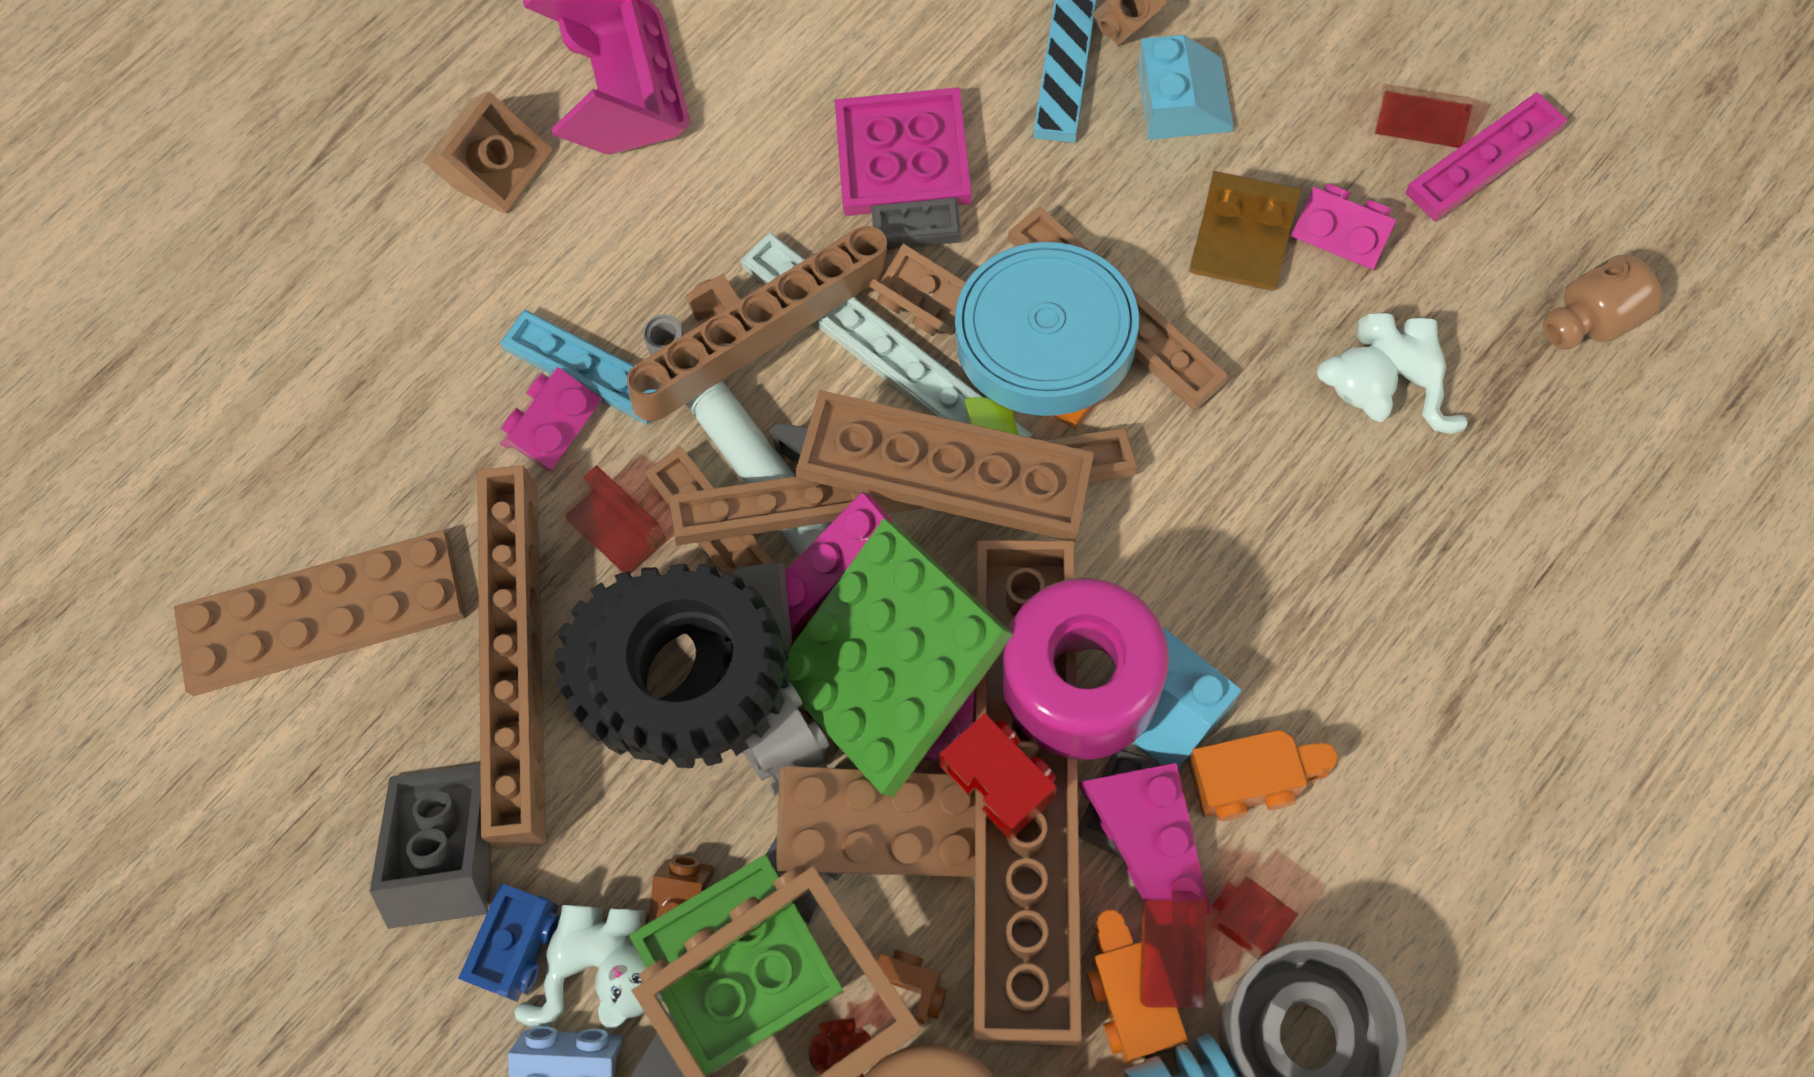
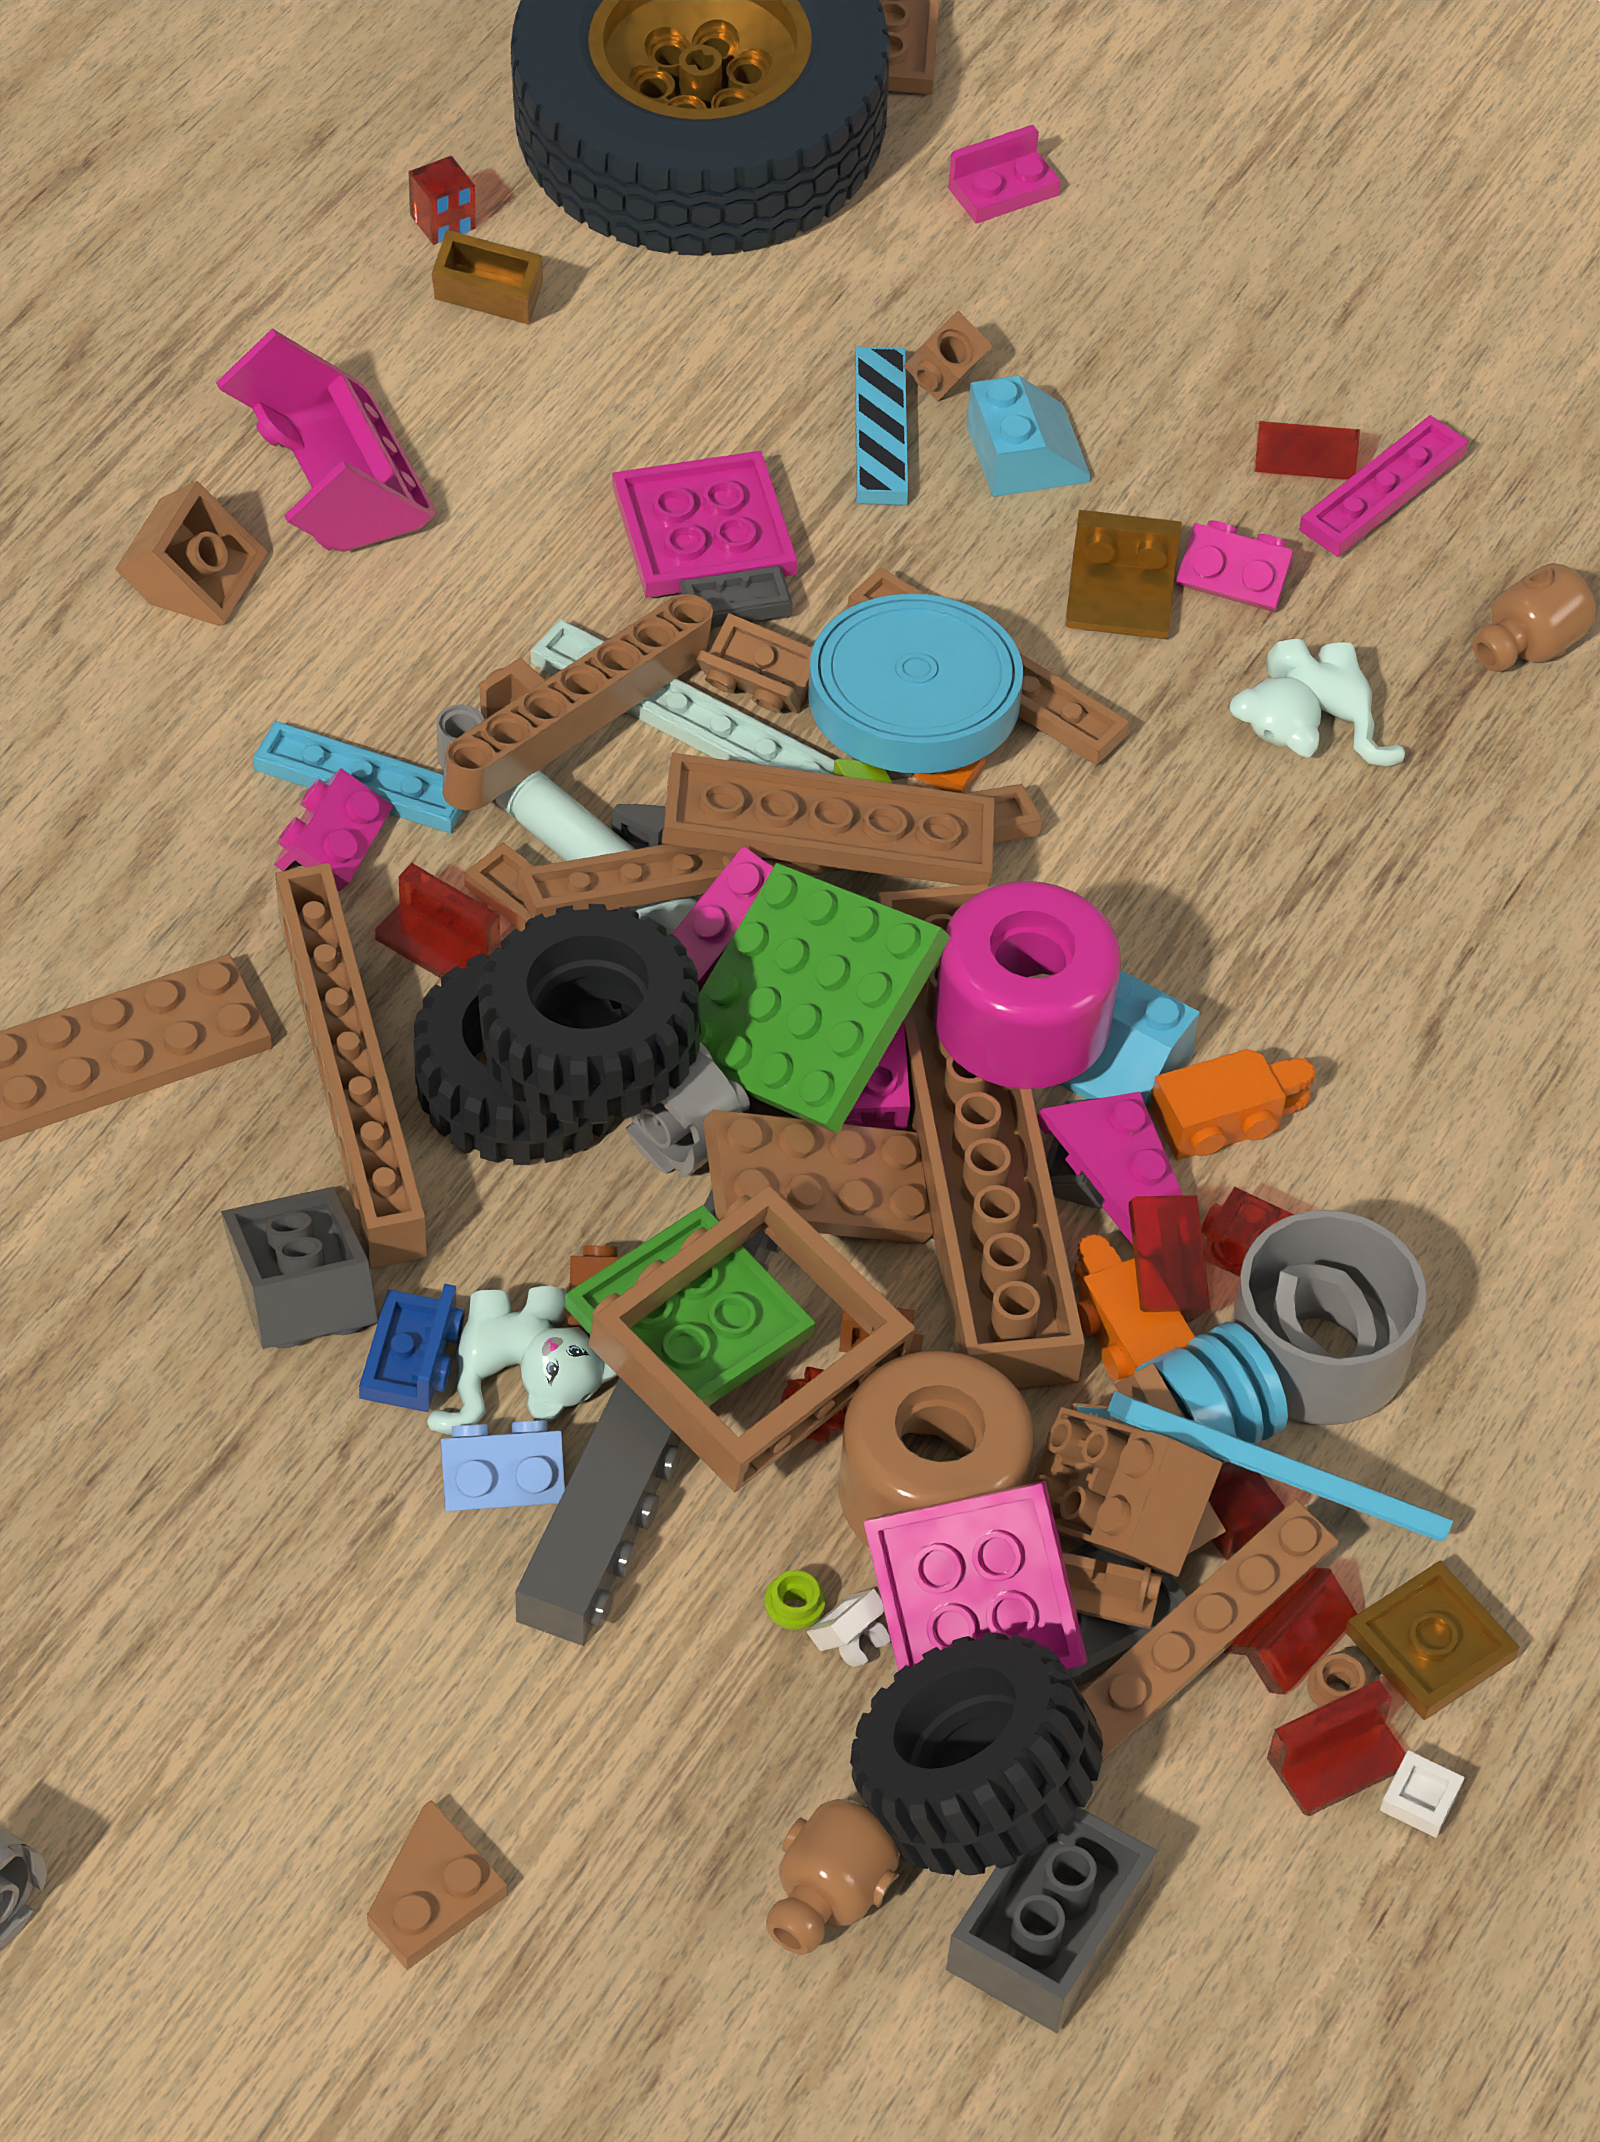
camera: 20 degrees left, 15 degrees down
(994, 765) = (951, 1098): red brick -> none

